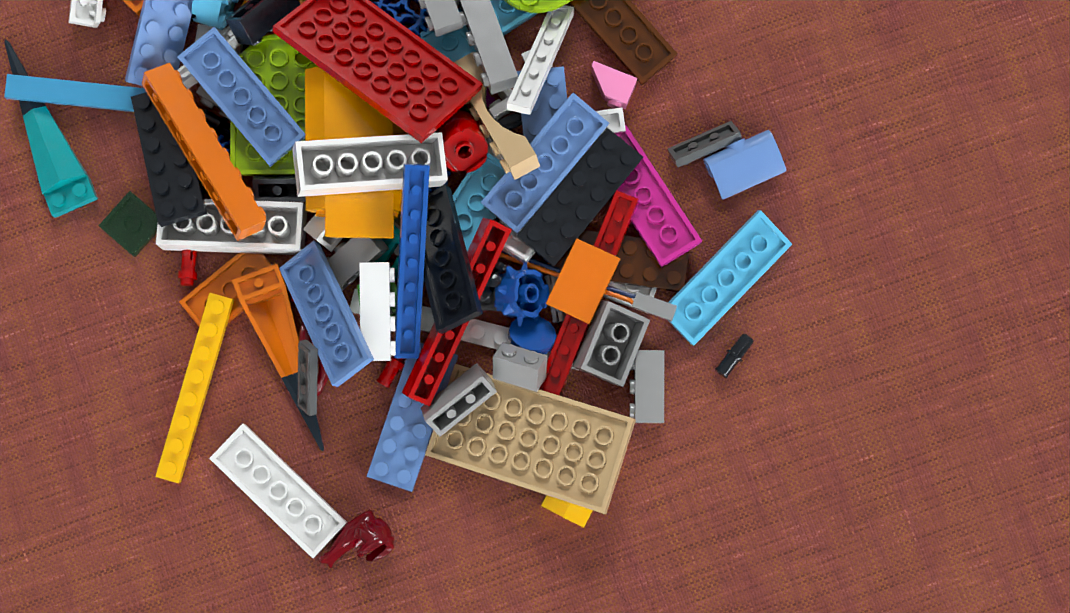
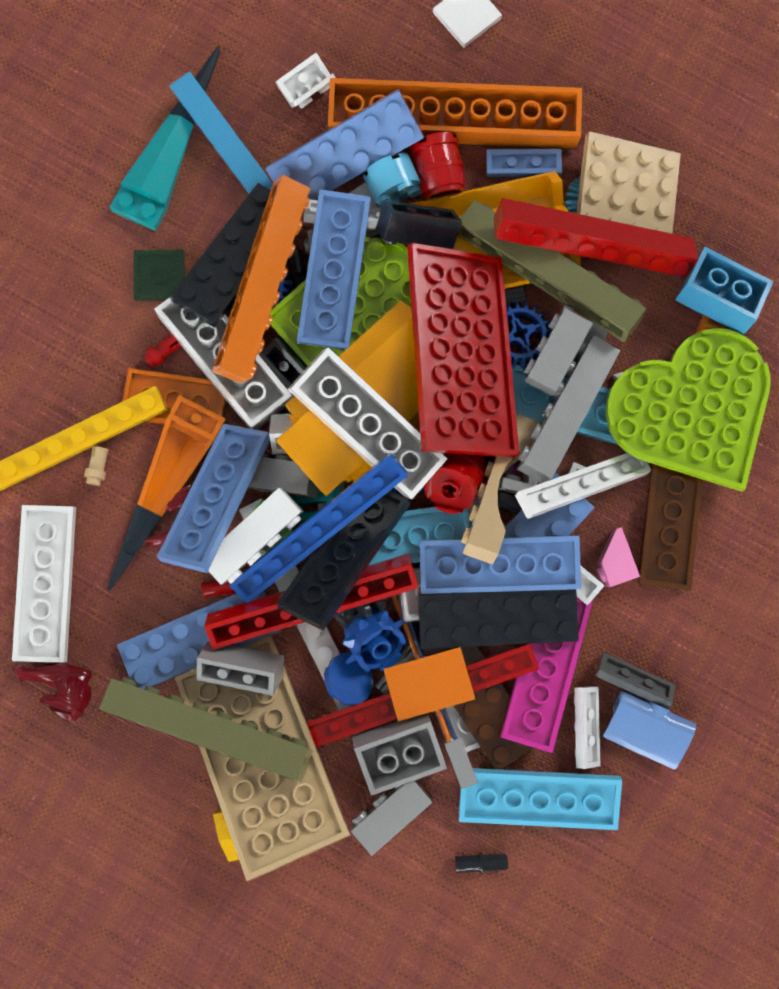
camera: 45 degrees right, 0 degrees up
(231, 387) = (95, 471): none -> tan animal
(307, 377) = (151, 527): dark grey tile -> none
(479, 458) = (206, 729): none -> olive brick
(519, 366) = (311, 694): light grey brick -> none
(706, 203) = (587, 727): none -> white plate

